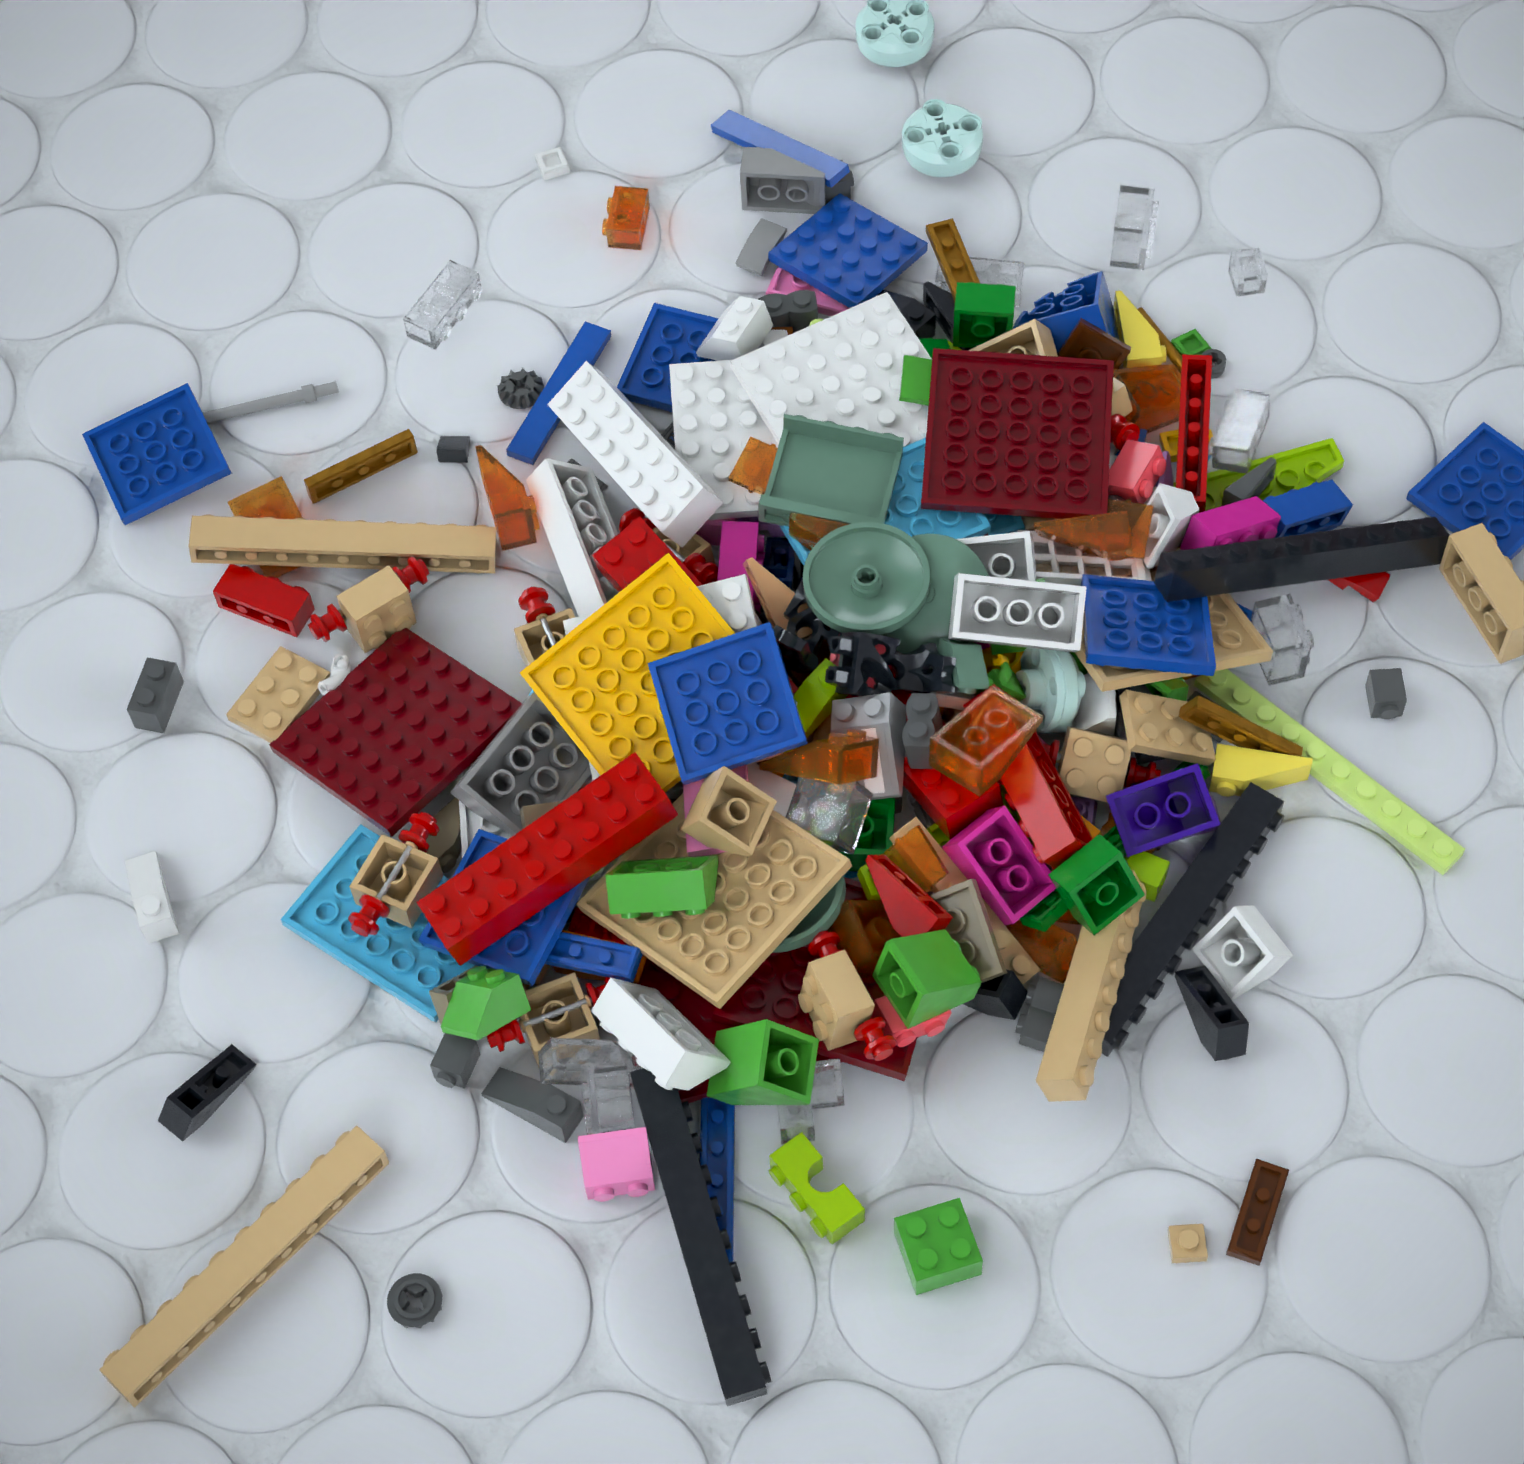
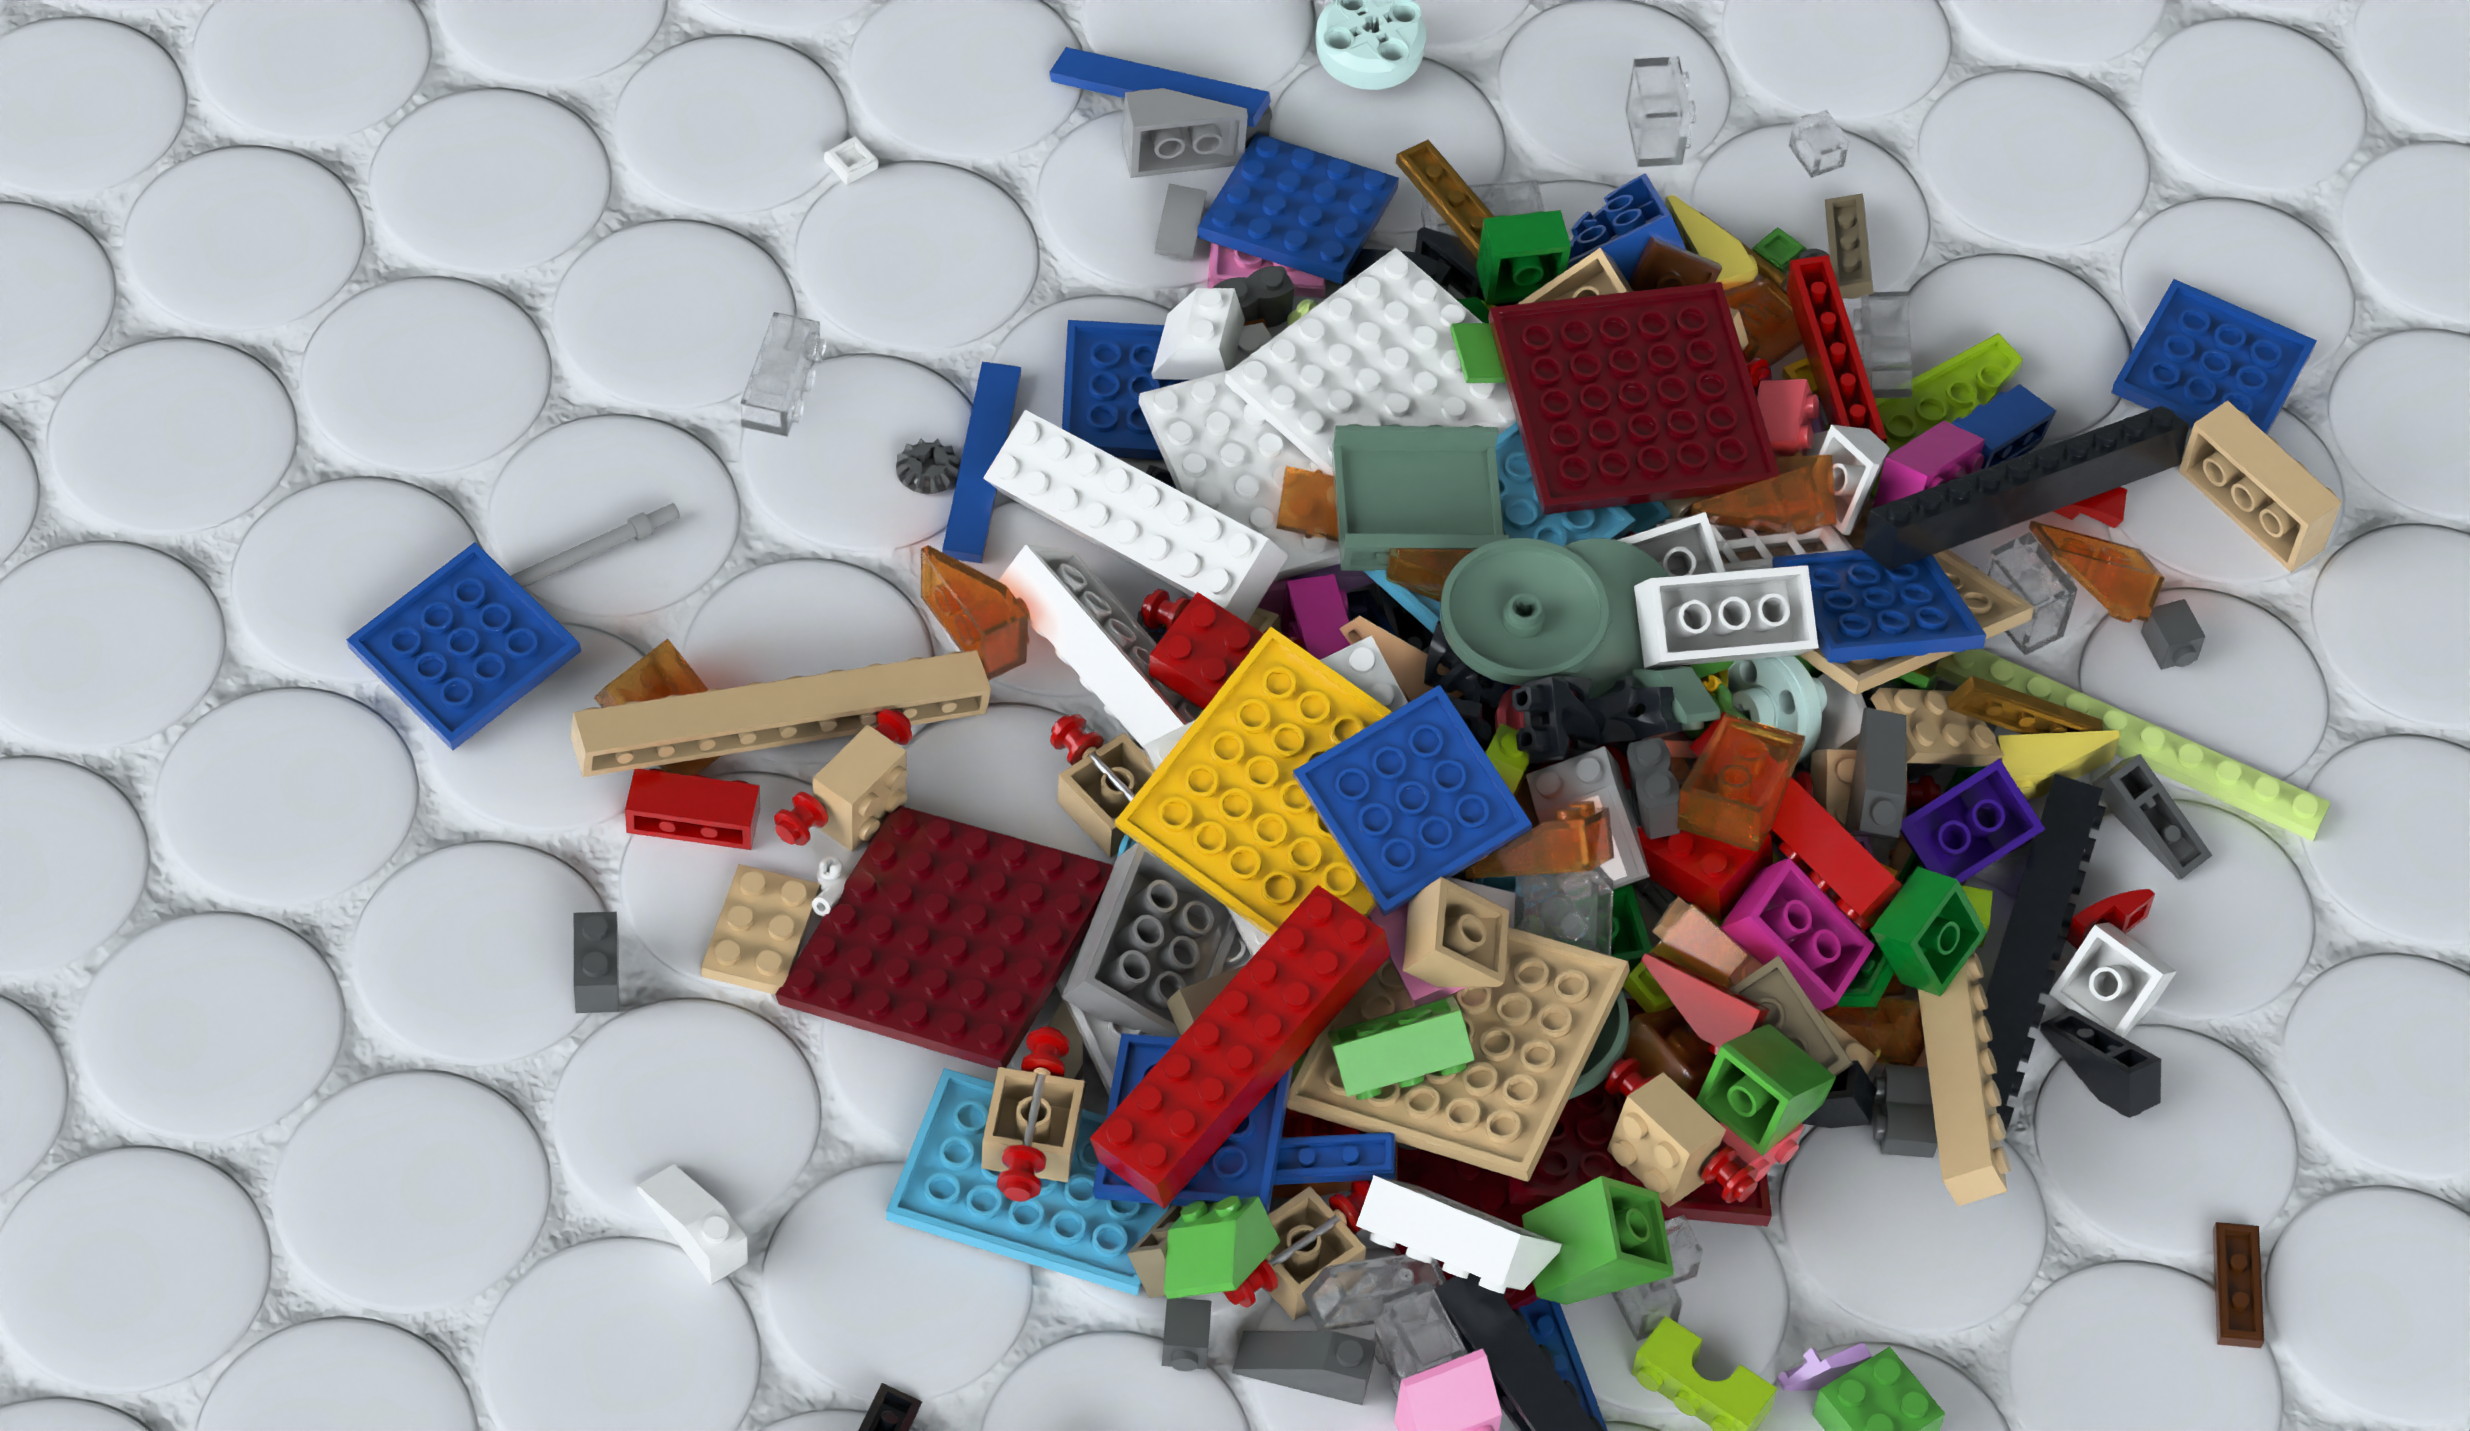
camera: 25 degrees left, 5 degrees down
(360, 466) = (754, 608): pearl gold tile -> none
(453, 449) = (868, 562): black slope -> none
(627, 217) = (986, 214): clear orange brick -> none
(906, 1203) = (1818, 1373): none -> lavender slope
(1102, 755) = (1878, 776): none -> dark grey slope
(1187, 1243) = (2169, 1341): tan plate -> none
(1239, 352) = (1849, 245): none -> dark tan plate
(1250, 484) = (1924, 411): dark grey slope -> none
(1267, 899) = (2121, 910): none -> red slope
(1319, 831) = (2152, 815): none -> dark grey slope
(1342, 634) = (2109, 571): none -> clear orange slope

